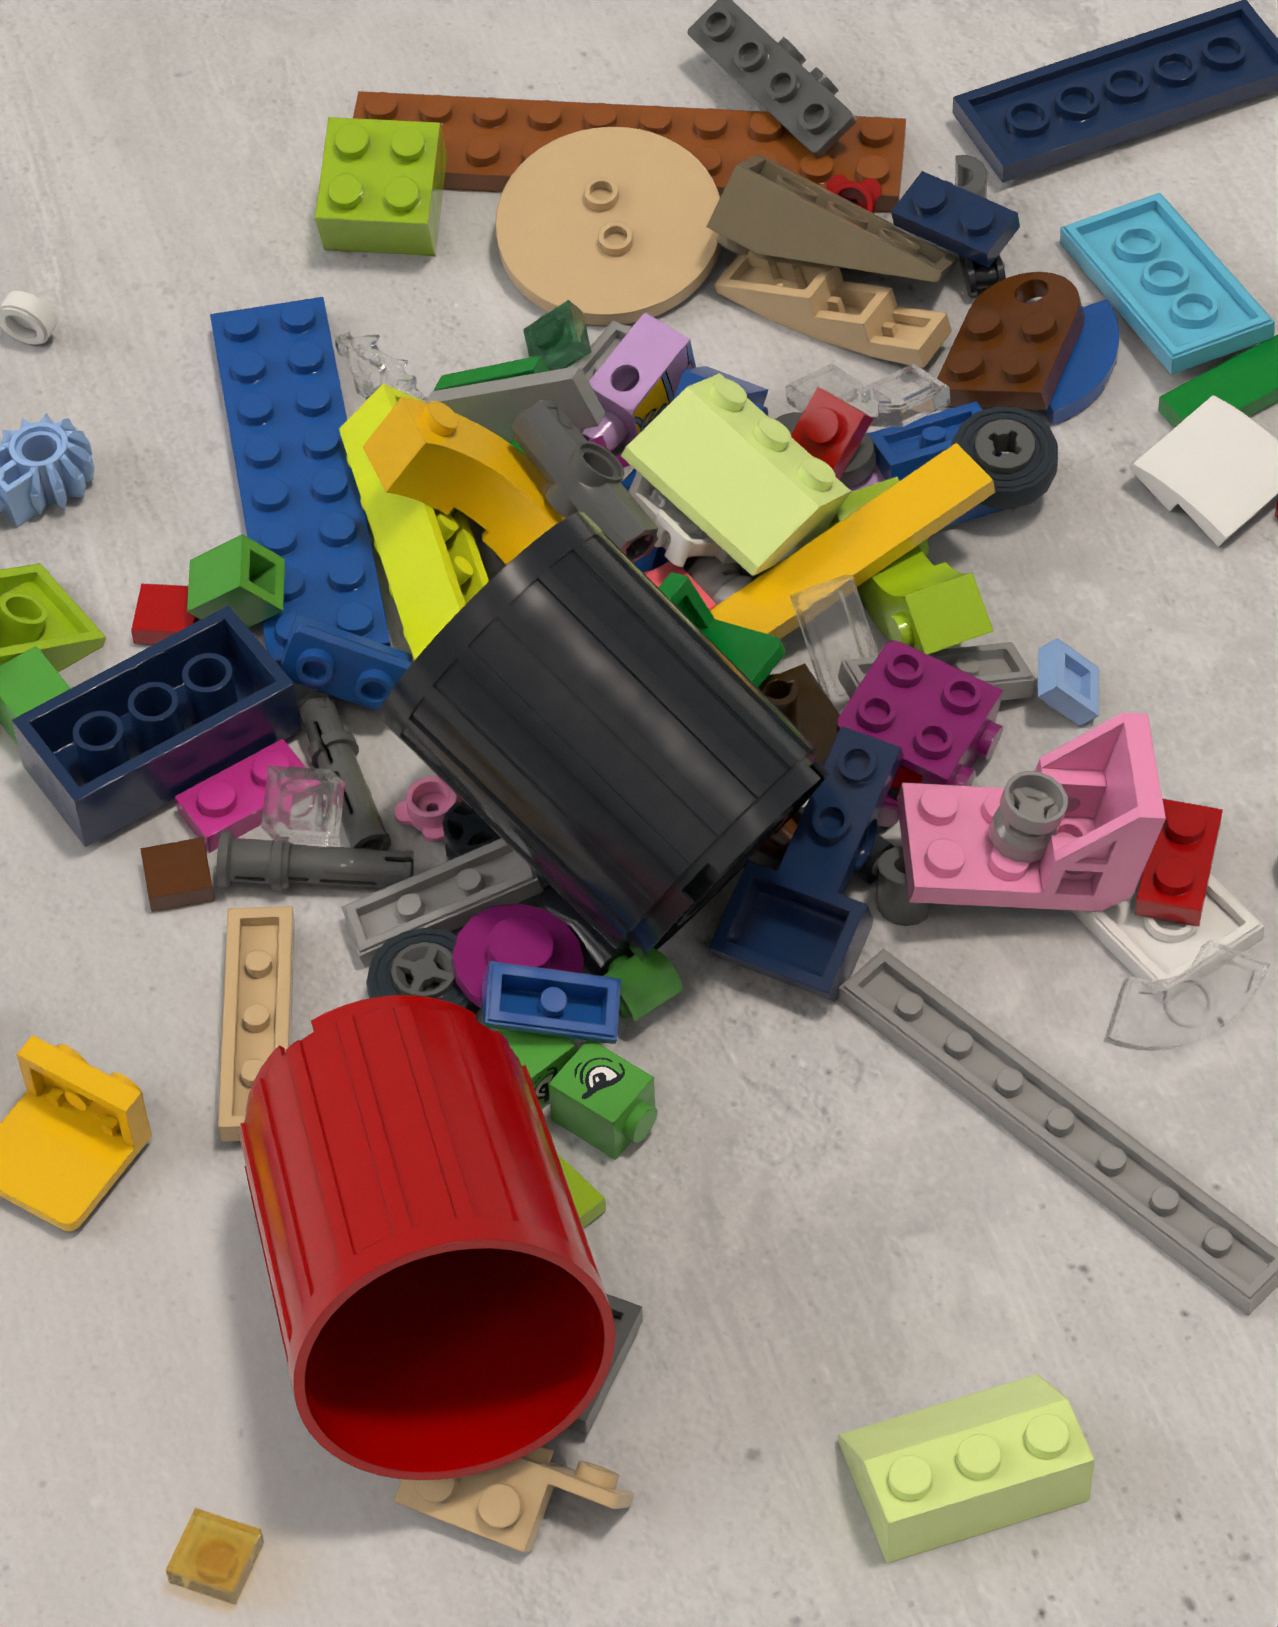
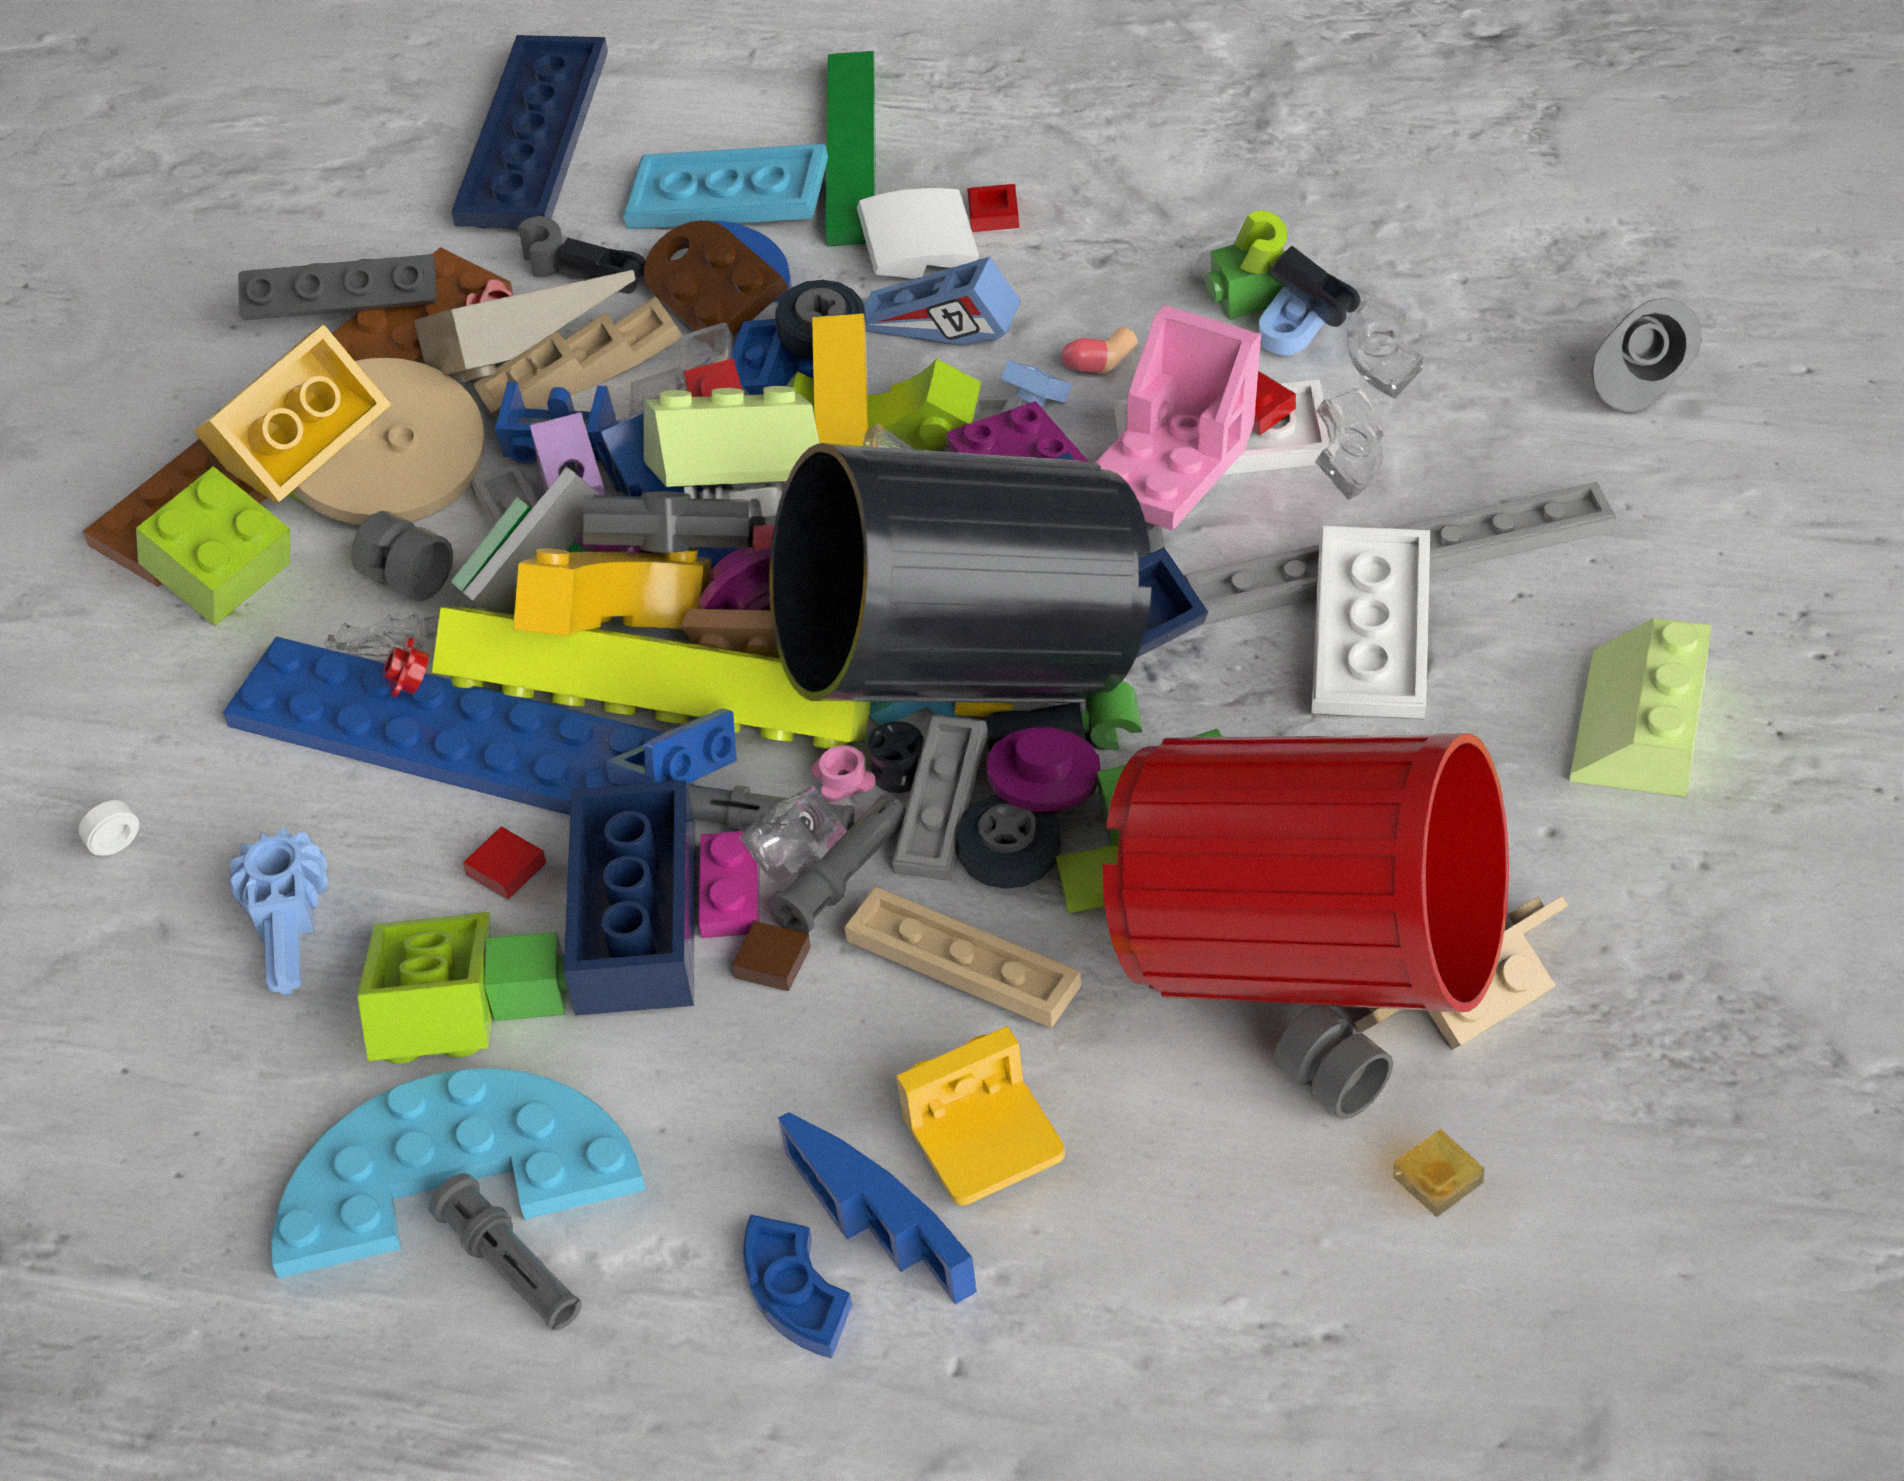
camera: 55 degrees left, 5 degrees down
(238, 576) = (534, 794): bright green brick -> none
(268, 1410) = (1340, 1066): none -> dark grey wheel
(313, 404) = (405, 668): none -> red plate
(470, 321) = (402, 555): none -> dark grey wheel
(551, 1002) = (1102, 755): blue slope -> none
(552, 141) = (293, 416): none -> yellow slope
(559, 337) = (462, 516): clear green plate -> none
(723, 332) = (515, 420): none -> blue window
(928, 1146) = (1371, 622): none -> white tile
(955, 219) = (576, 252): dark blue plate -> none
(1028, 816) = (1173, 417): light grey wheel -> none
(1119, 550) = (946, 306): none -> medium blue slope
(1164, 719) = (1099, 355): none -> arm

